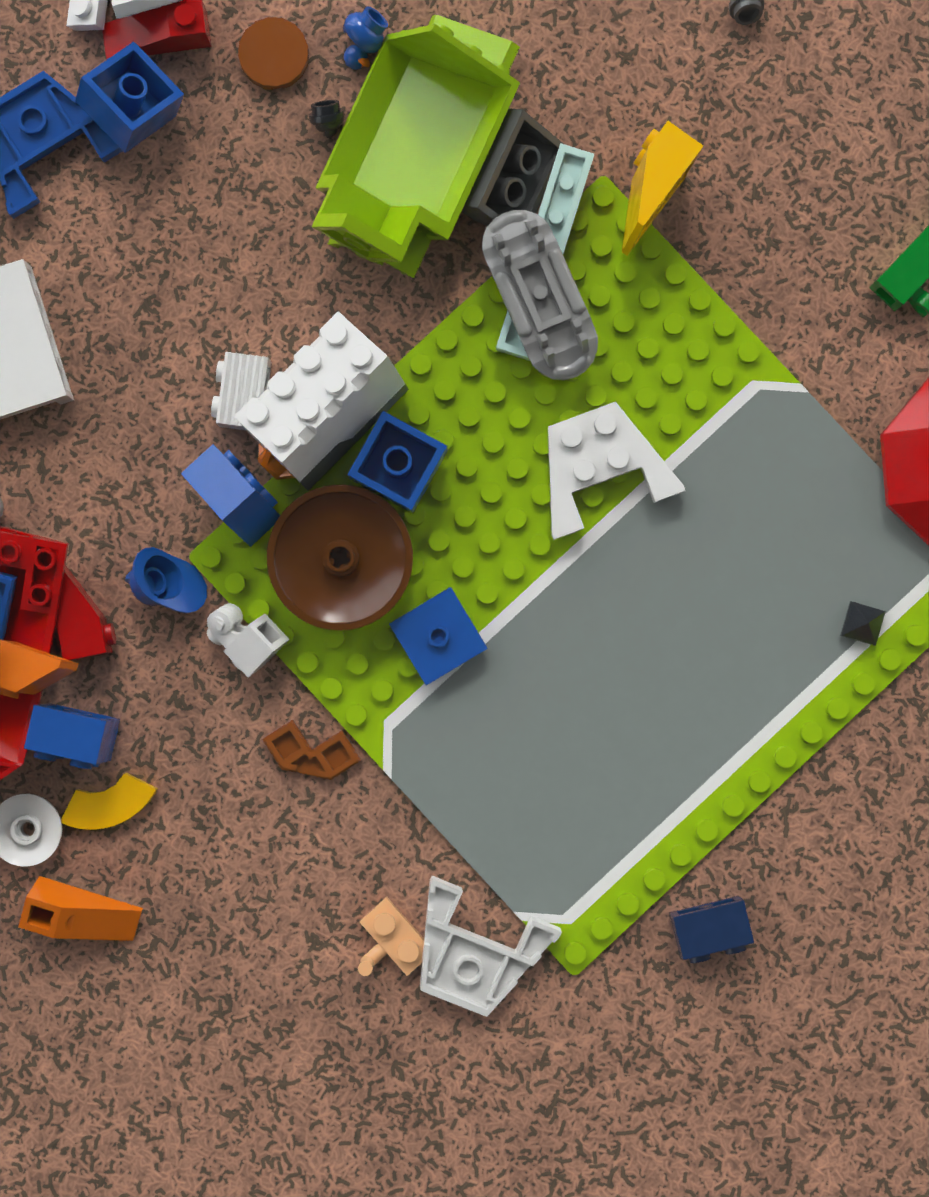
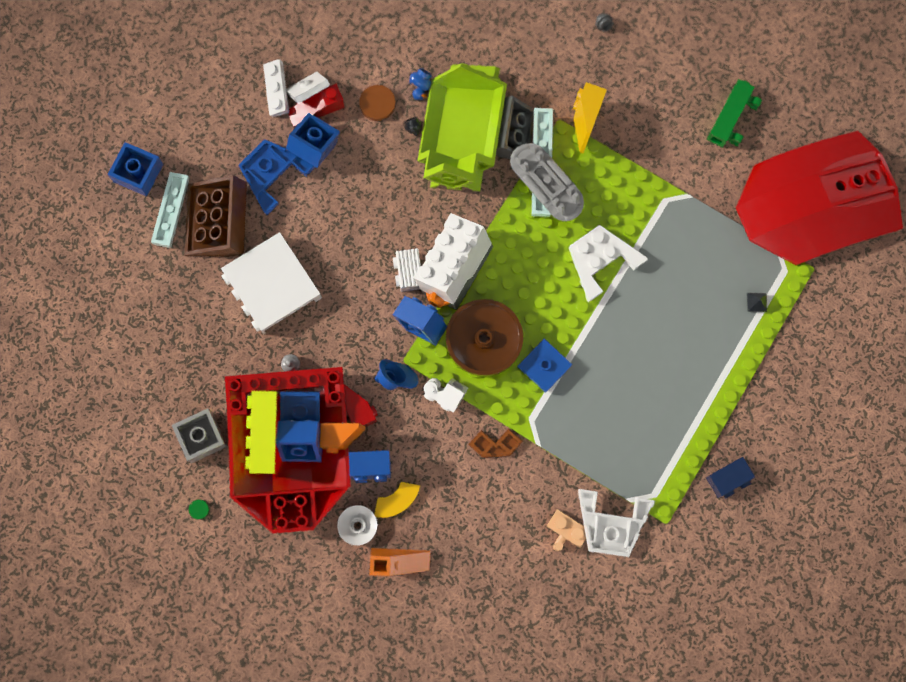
camera: 20 degrees left, 10 degrees down
(397, 462) = (500, 281): blue brick -> none

